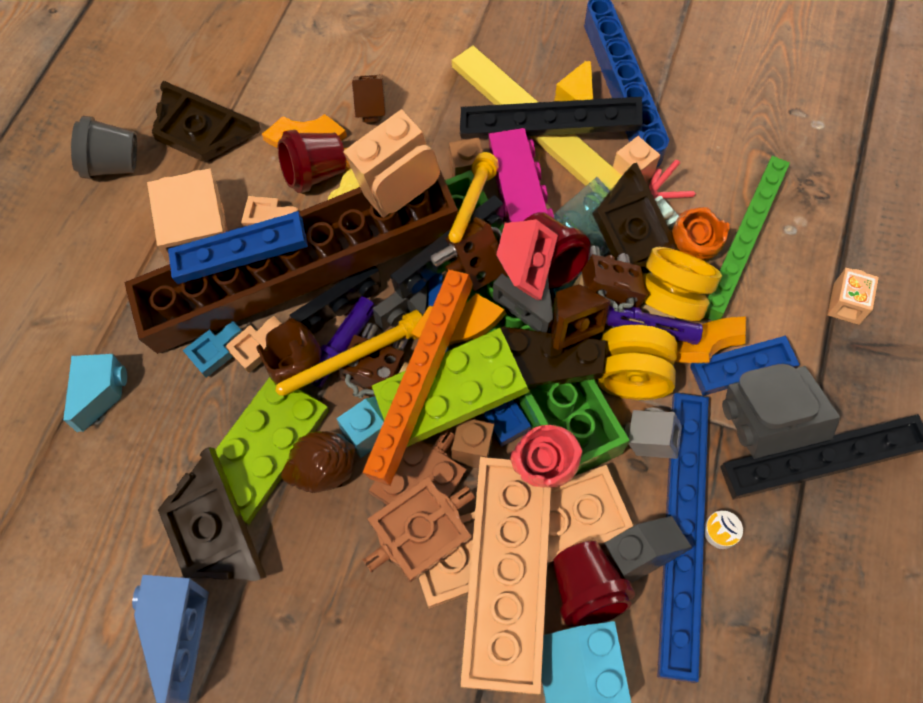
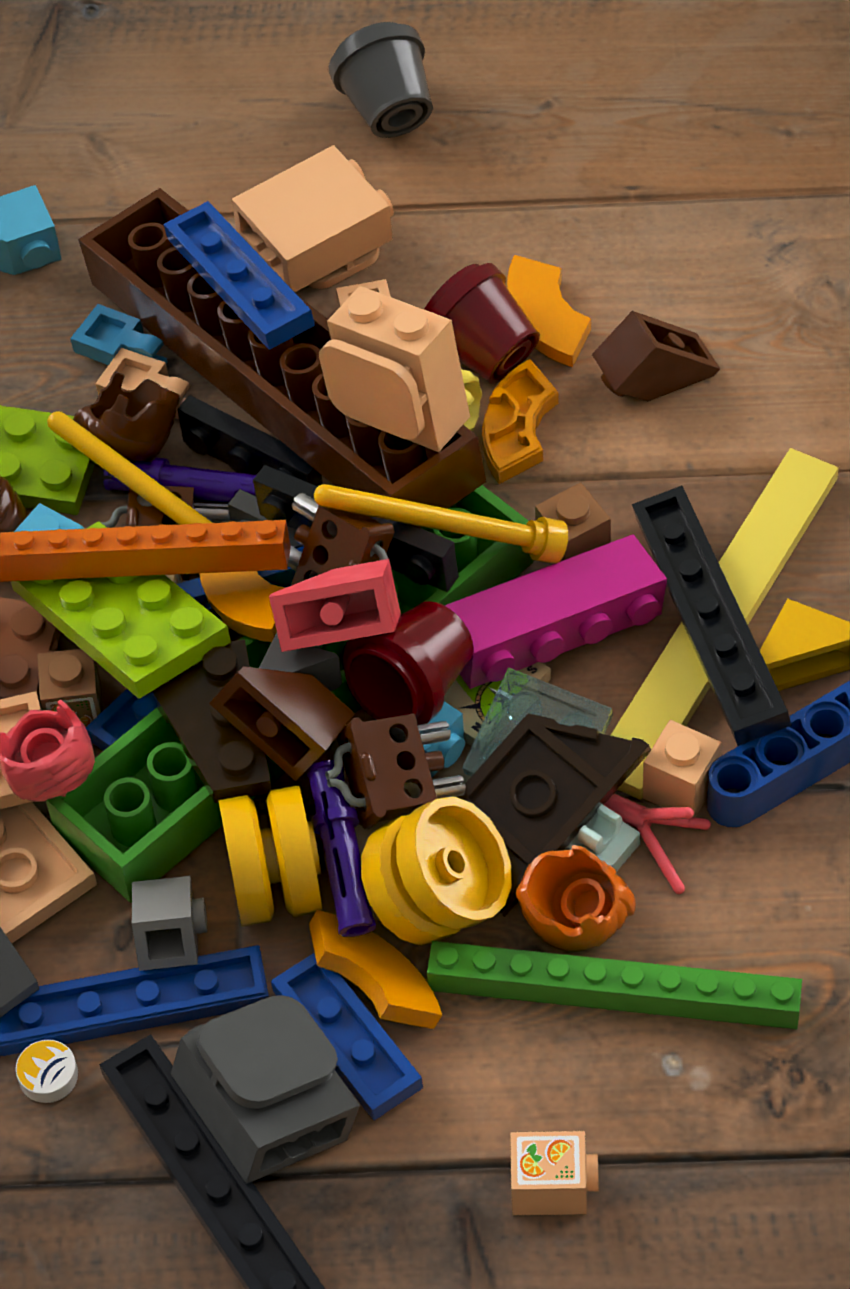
camera: 75 degrees right, 10 degrees down
(198, 125) = (495, 172): dark brown wing -> none

